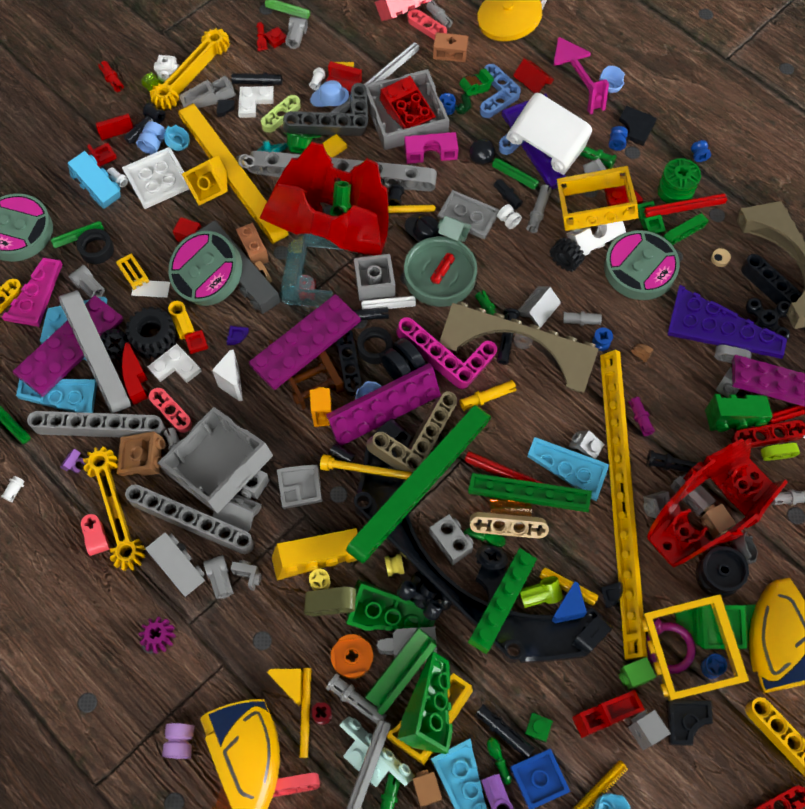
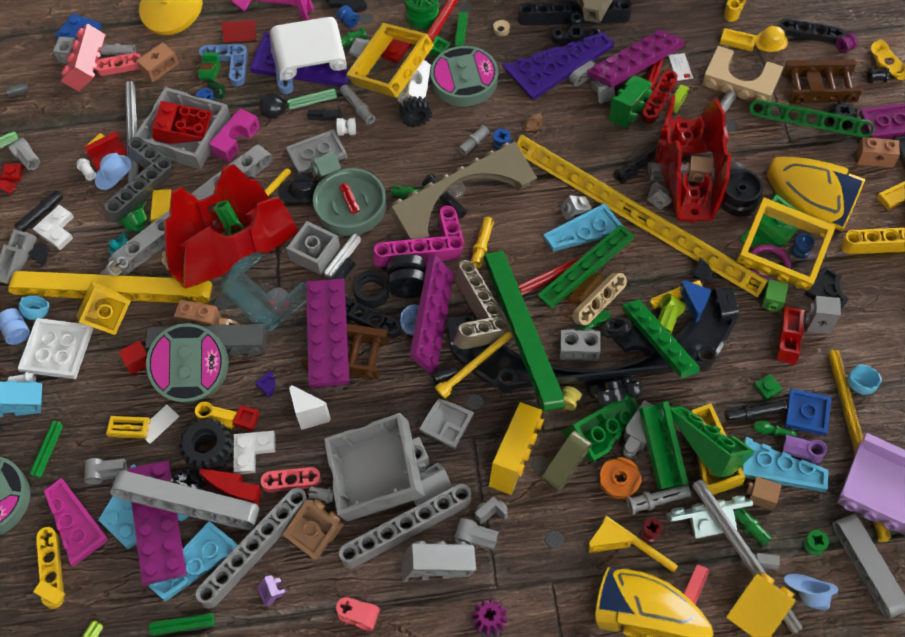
camera: 50 degrees left, 5 degrees down
(89, 236) = (71, 427): black tyre -> none
(114, 508) = (345, 581): yellow arm -> none
(278, 120) = (95, 222): yellowish green beam -> none
(318, 576) = (539, 455): light yellow wheel -> none
(320, 406) = (395, 358): light orange brick -> none
(540, 305) = (437, 158): light grey panel -> none
(641, 416) = (583, 159): magenta pin -> none

